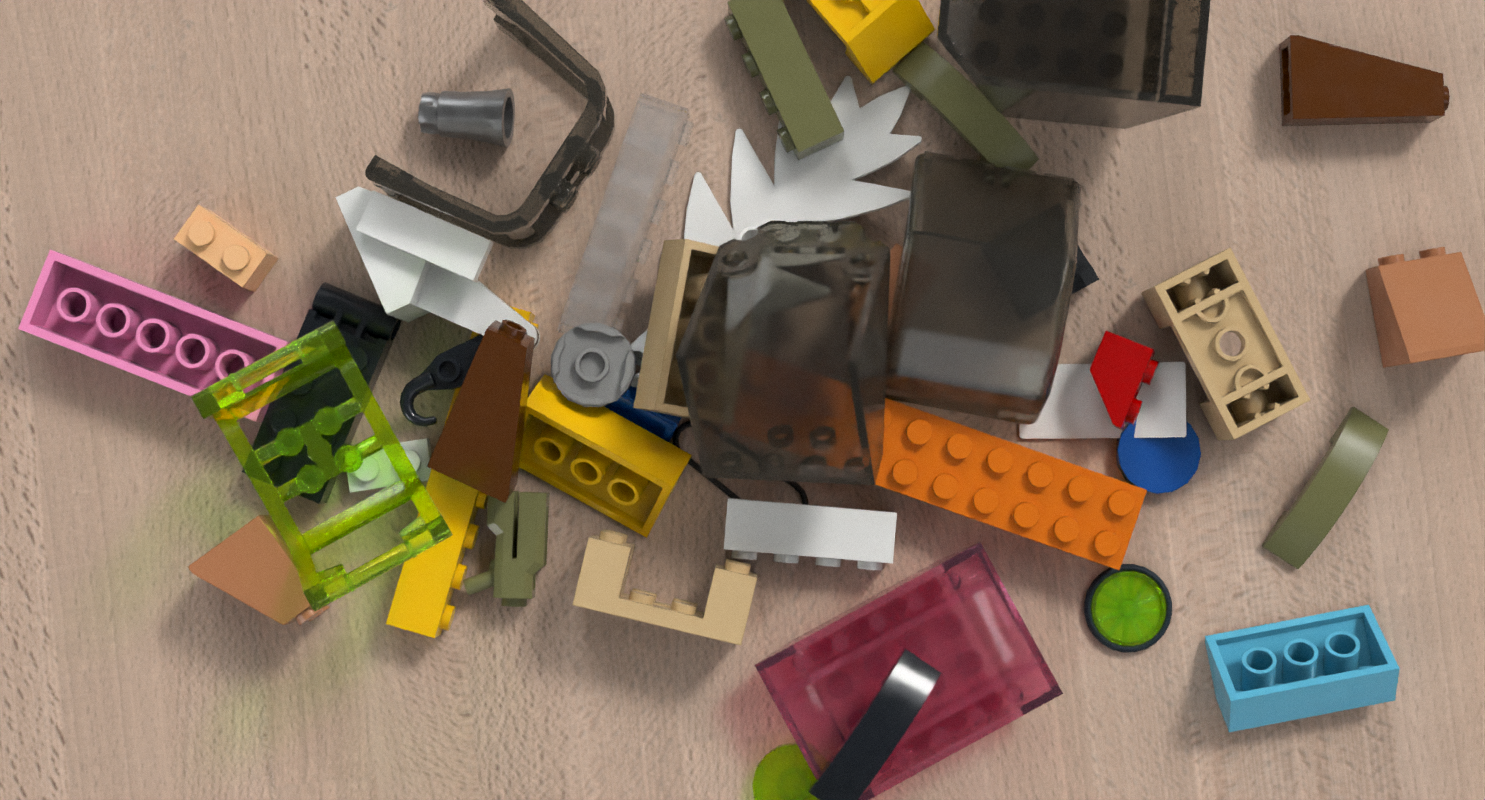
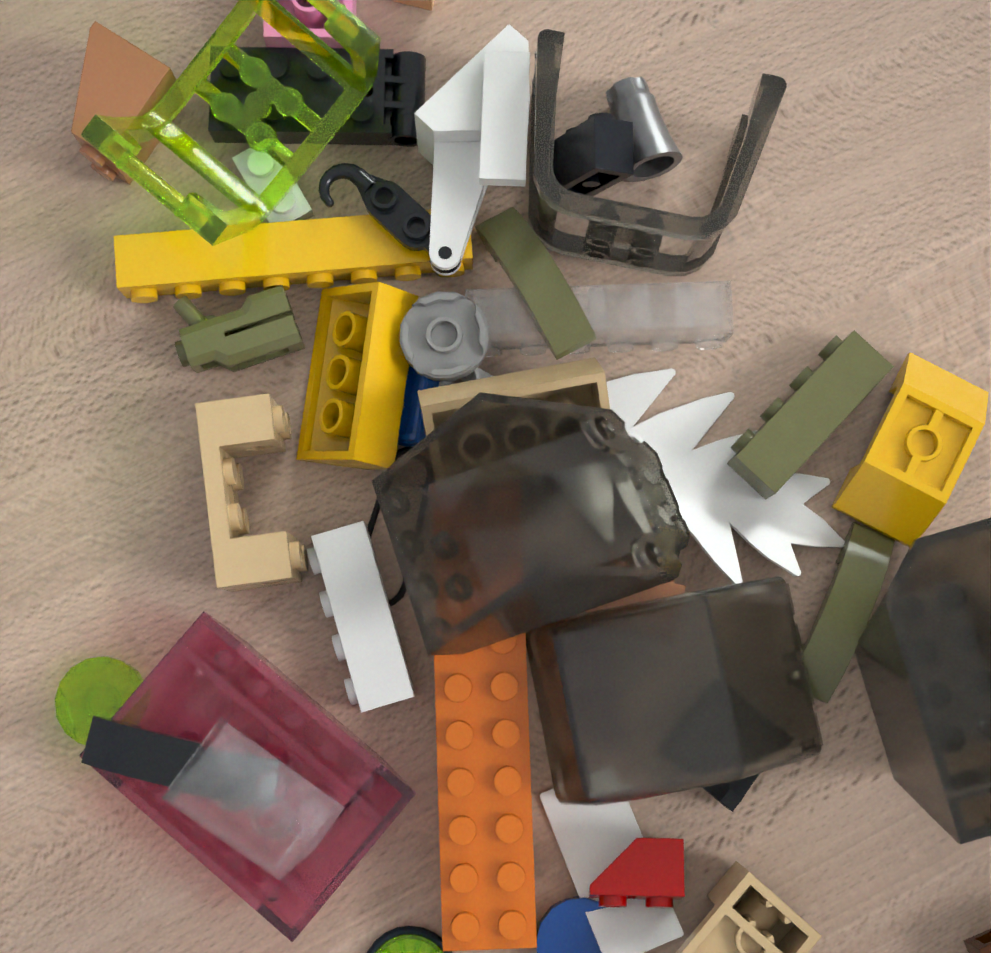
camera: 60 degrees right, 5 degrees down
(480, 168) = (594, 154): none -> black brick
(488, 417) = (354, 249): reddish brown slope -> none
(573, 264) = (537, 282): none -> olive slope
(934, 680) = (253, 800): none -> clear slope

